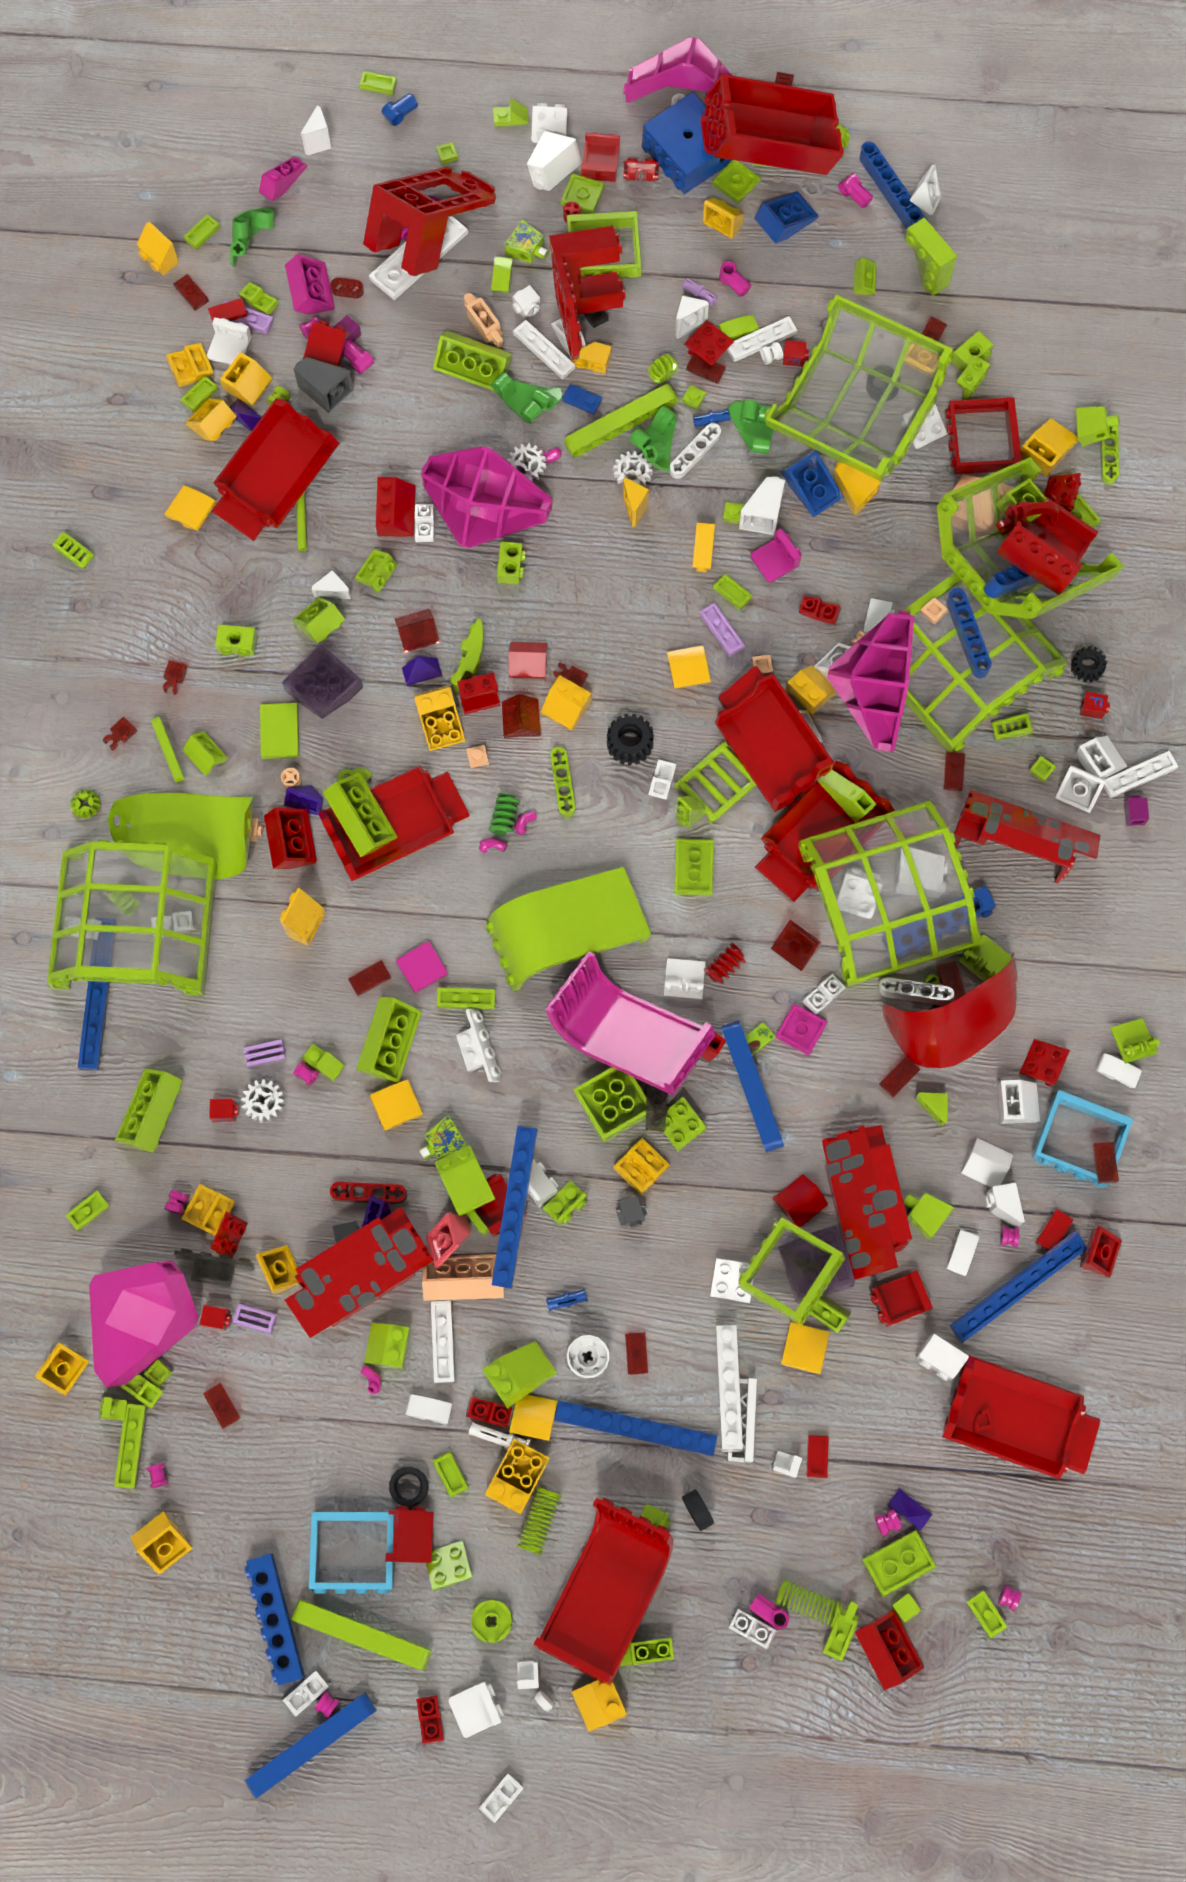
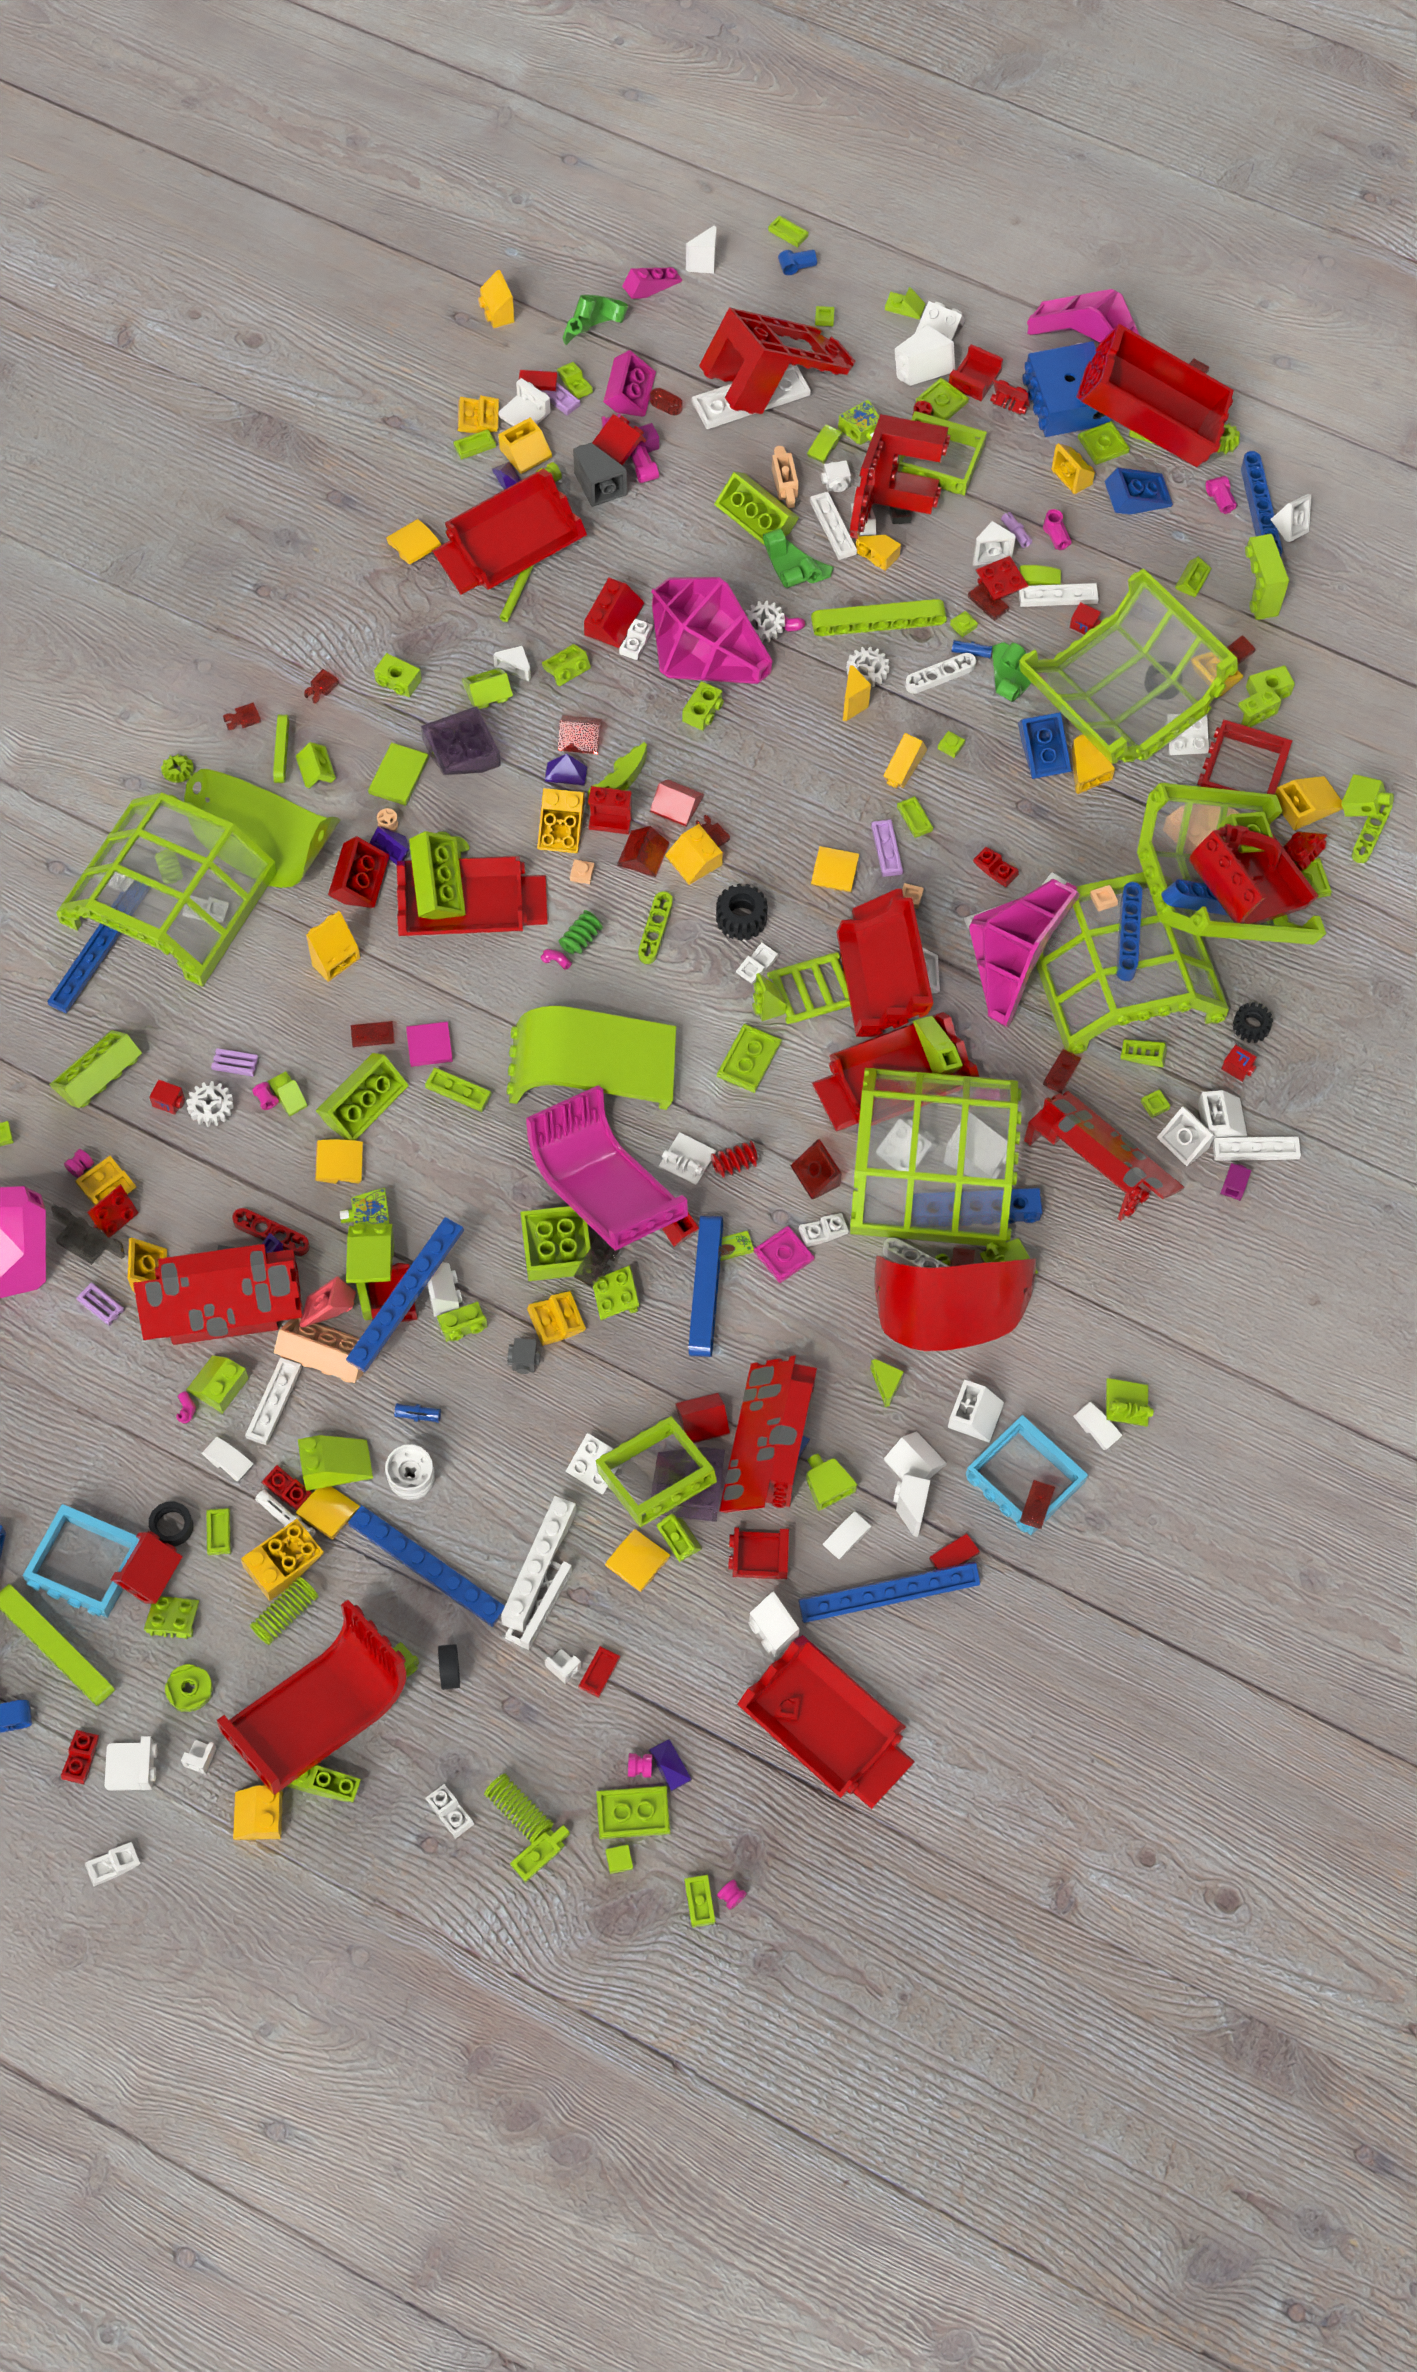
camera: 20 degrees right, 10 degrees down
(63, 543) = (276, 527): lime slope -> none
(191, 292) = (512, 351): clear red plate -> none
(201, 232) = (549, 302): lime tile -> none
(211, 419) = (474, 470): yellow slope -> none
(215, 1318) = (61, 1285): red brick -> none
(222, 1405) = (26, 1371): clear red plate -> none
(257, 830) = (328, 853): light nougat plate -> none
(477, 1048) = (446, 1139): white bracket -> none
(522, 820) = (597, 947): dark pink arm -> none
(544, 1701) = (202, 1787): white tile -> none
(582, 399) = (849, 585): blue plate -> none
(636, 1353) = (462, 1494): clear red plate -> none
(657, 438) = (906, 650): bright green panel -> none
(663, 369) = (943, 584): lime gear -> none
(763, 508) = (982, 747): white slope -> none
(767, 1610) = (474, 1799): dark pink piece -> none
(771, 353) = (1061, 610): white wheel -> none
(776, 557) = (975, 801): dark pink bracket -> none
(810, 689) = (949, 936): yellow slope -> none
(889, 1650) = (580, 1891): red slope -> none
(899, 1077) = (863, 1340): clear red plate -> none
(1009, 1236) = (903, 1539): dark pink wheel -> none
(1044, 1062) = (1023, 1386): red hinge -> none
(1101, 1252) = (993, 1594): red slope -> none

